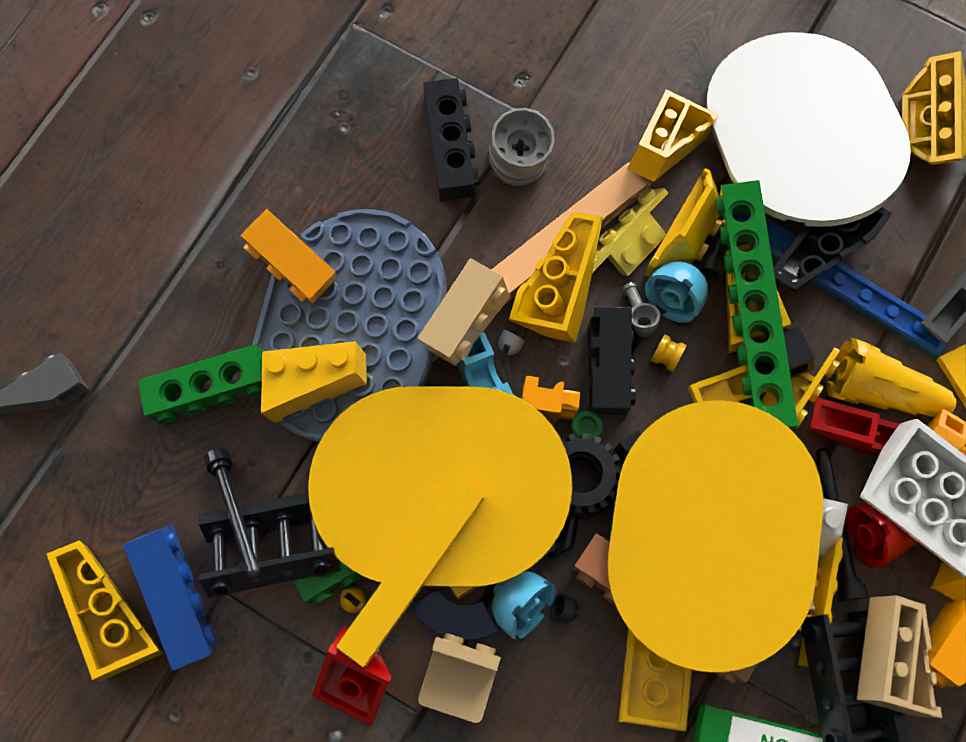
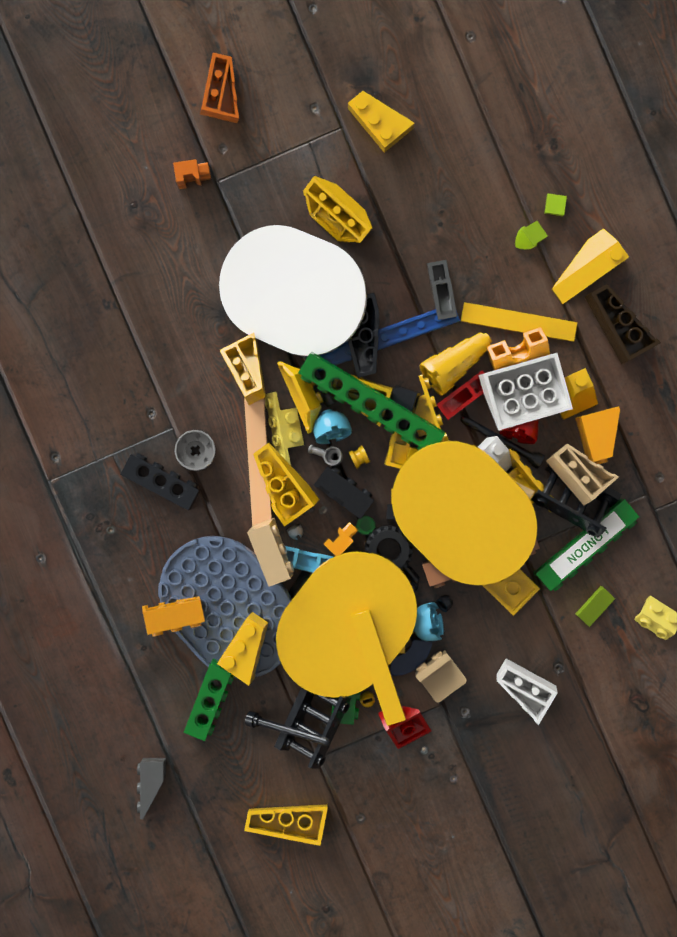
camera: 50 degrees left, 15 degrees up
(171, 596) = (303, 784): blue wedge -> none

